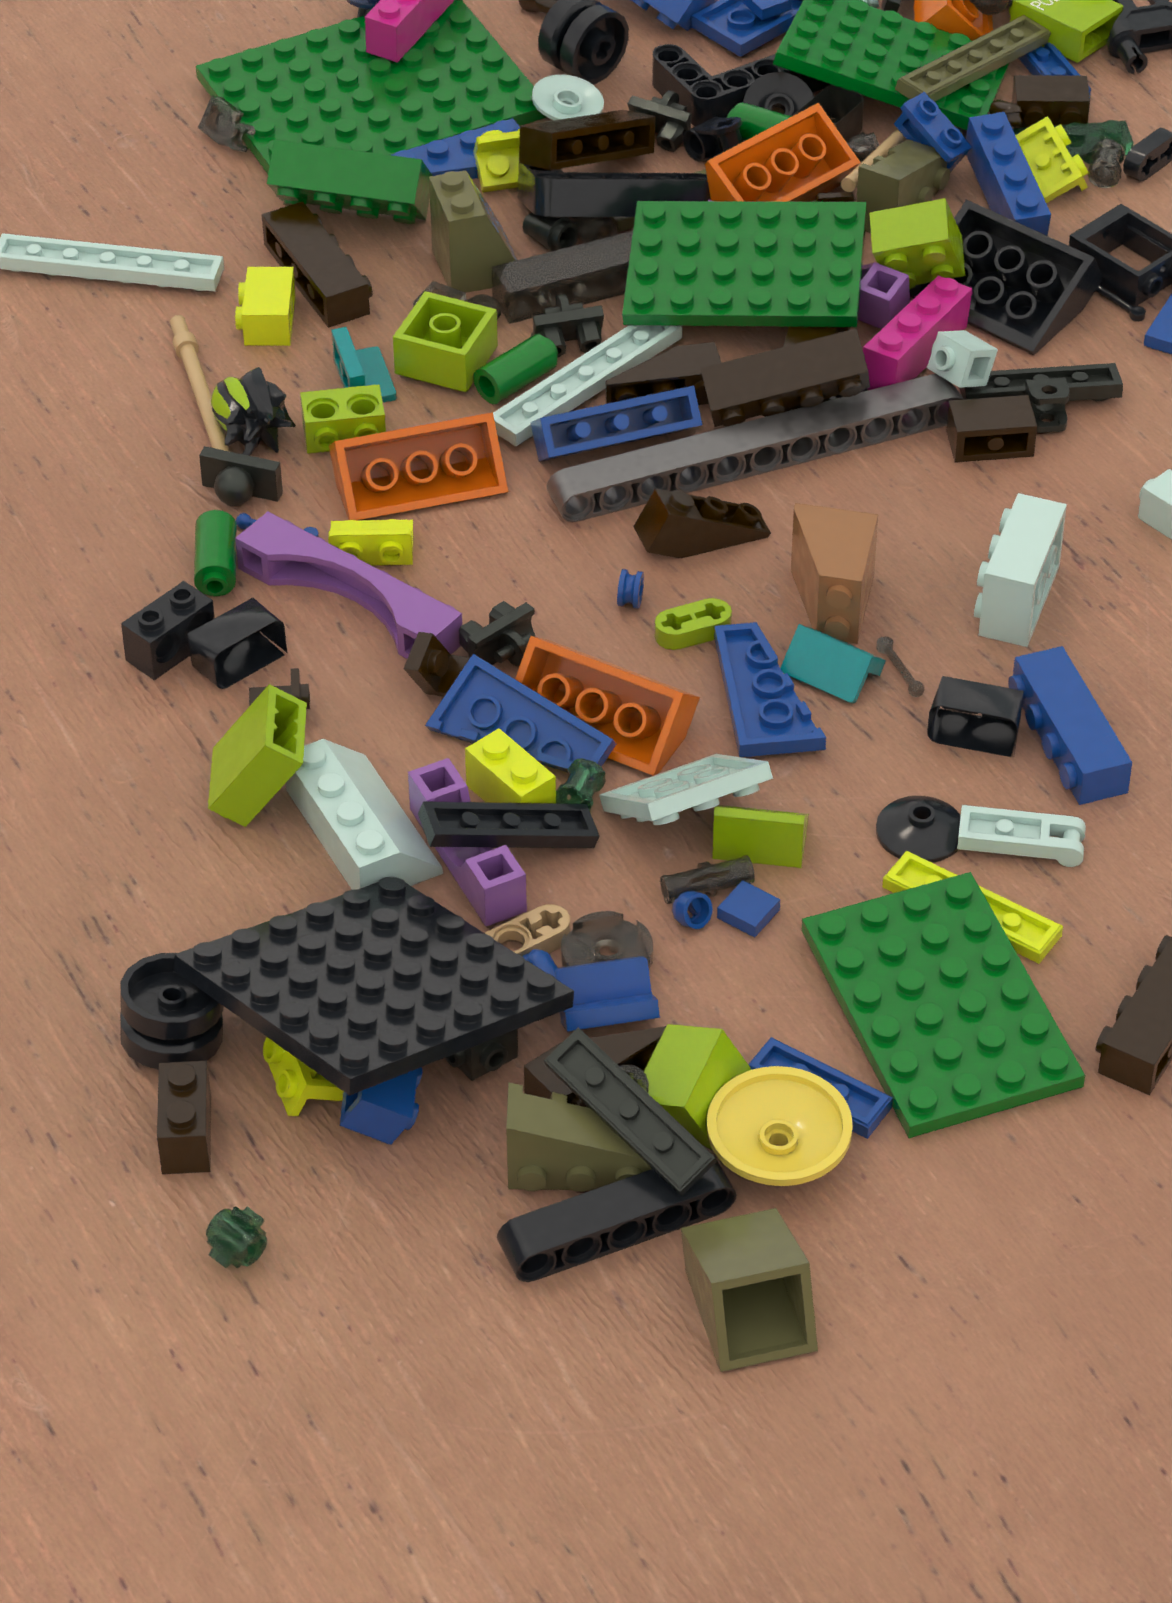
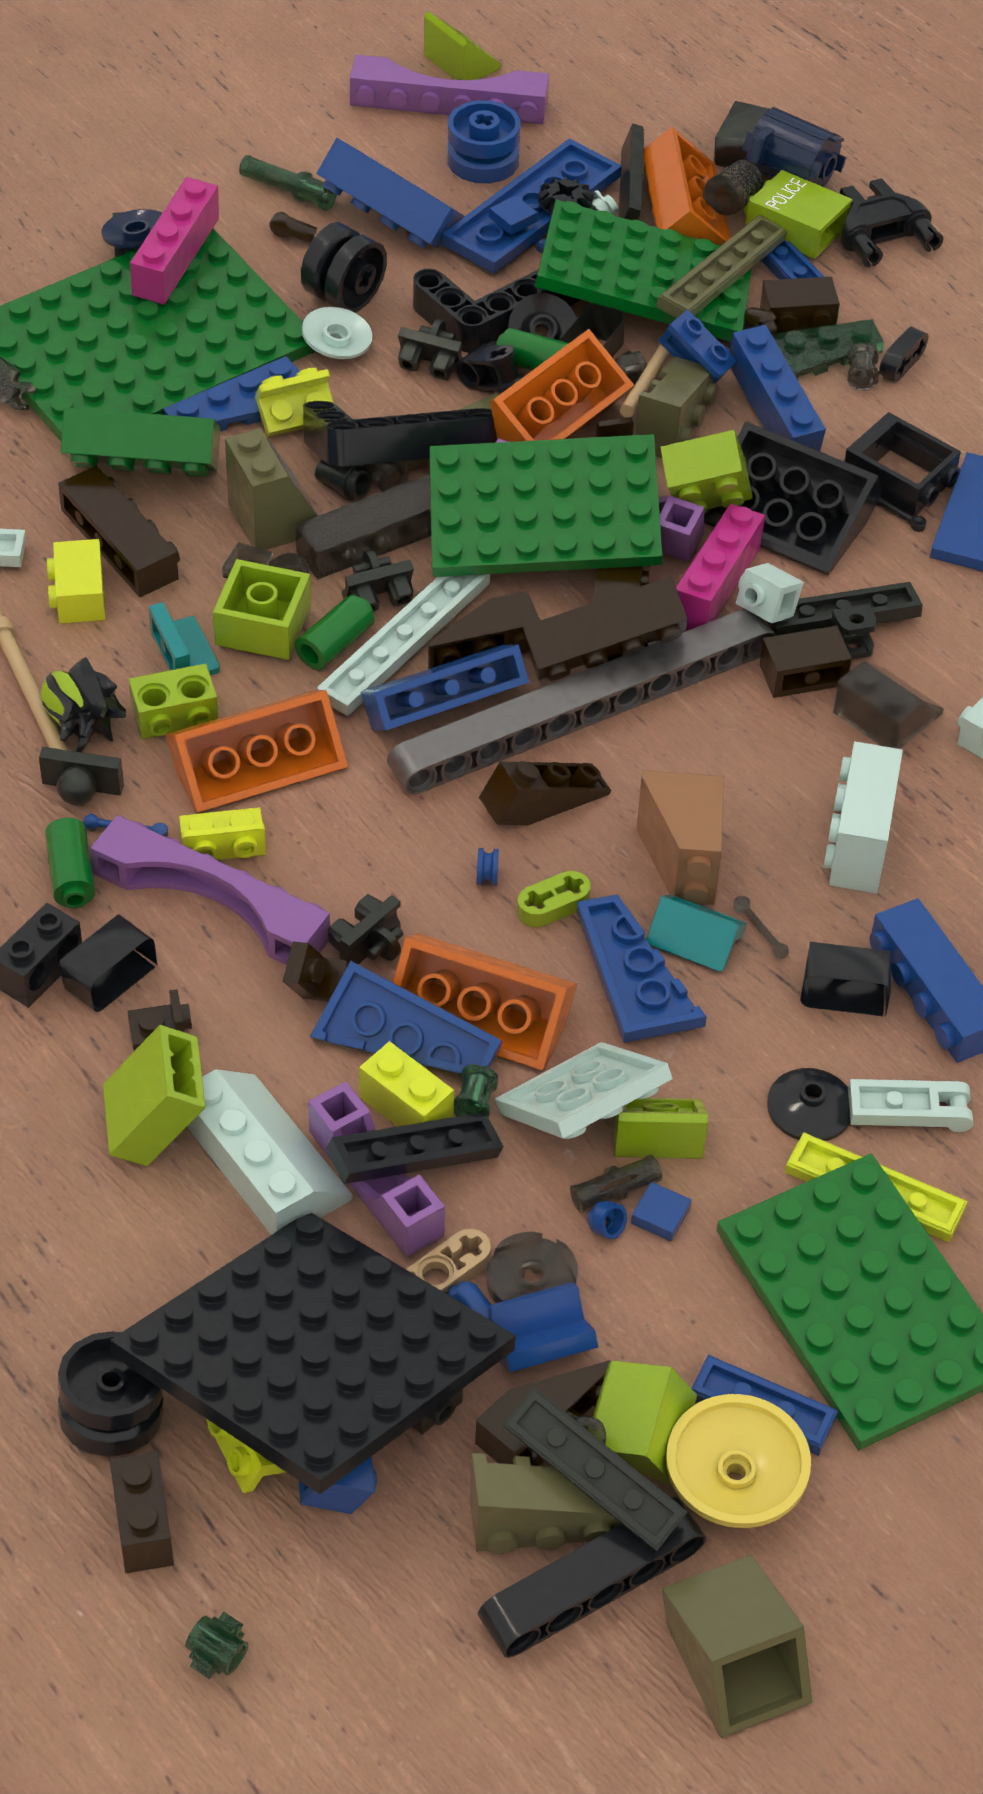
camera: 10 degrees left, 5 degrees up
(586, 139) = (366, 379): dark brown brick -> none
(1050, 160) = (812, 366): neon yellow bracket -> none
(1065, 473) = (883, 705): none -> clear smoke slope

